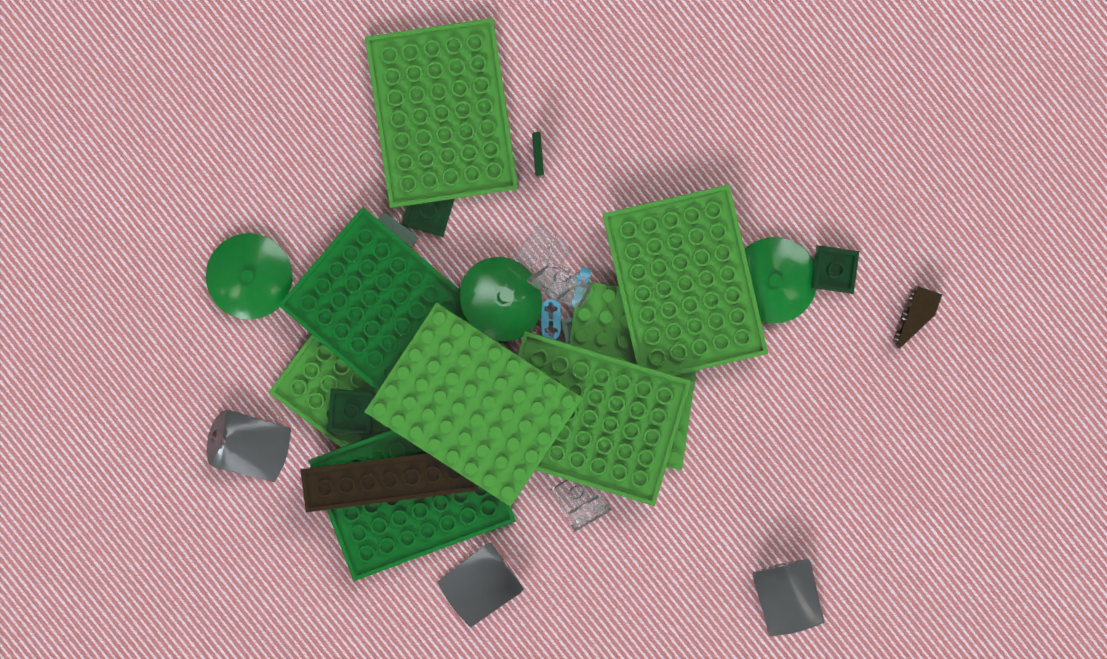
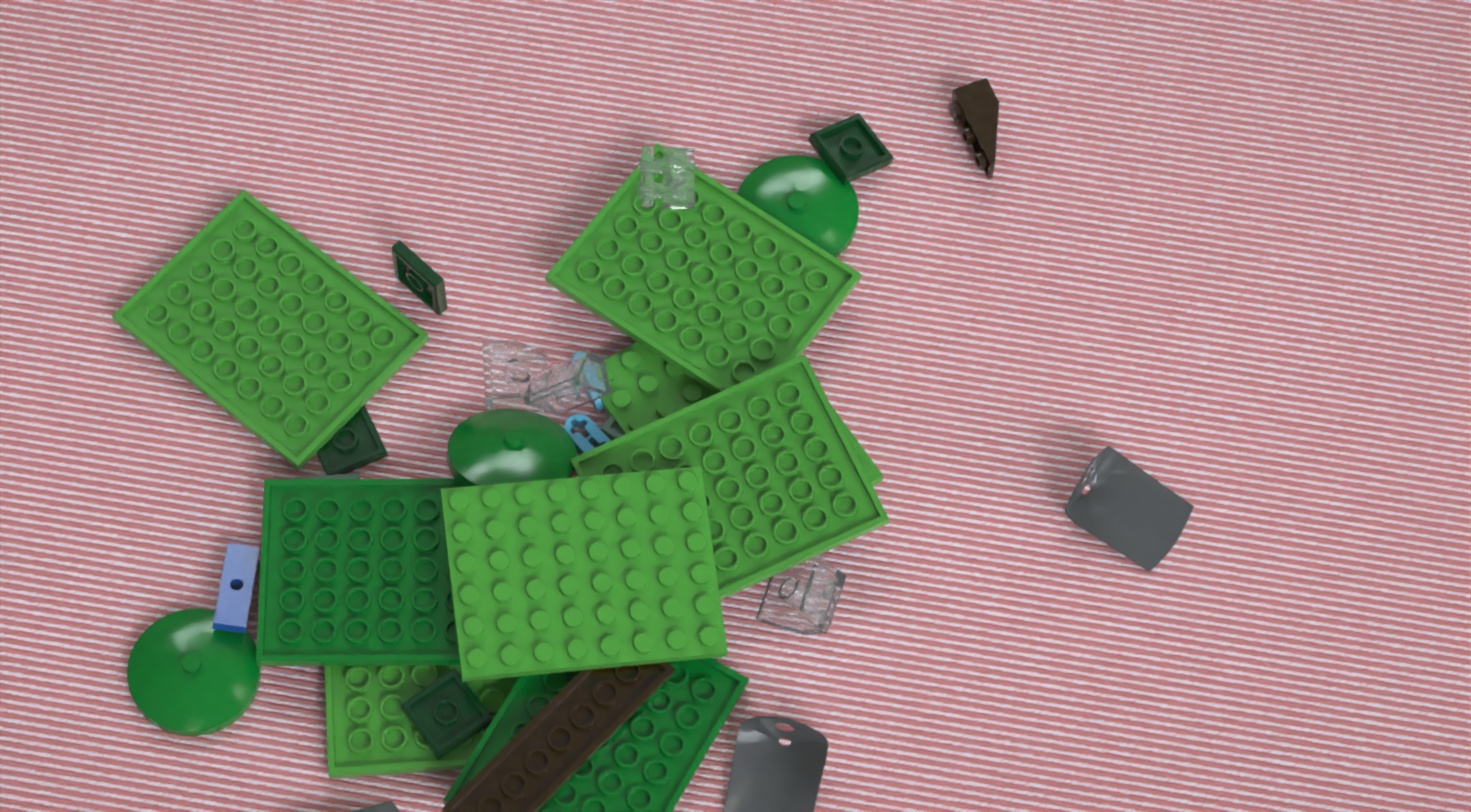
camera: 40 degrees left, 25 degrees down
(312, 242) = (236, 588): none -> tile
(720, 216) = (678, 177): none -> clear plate

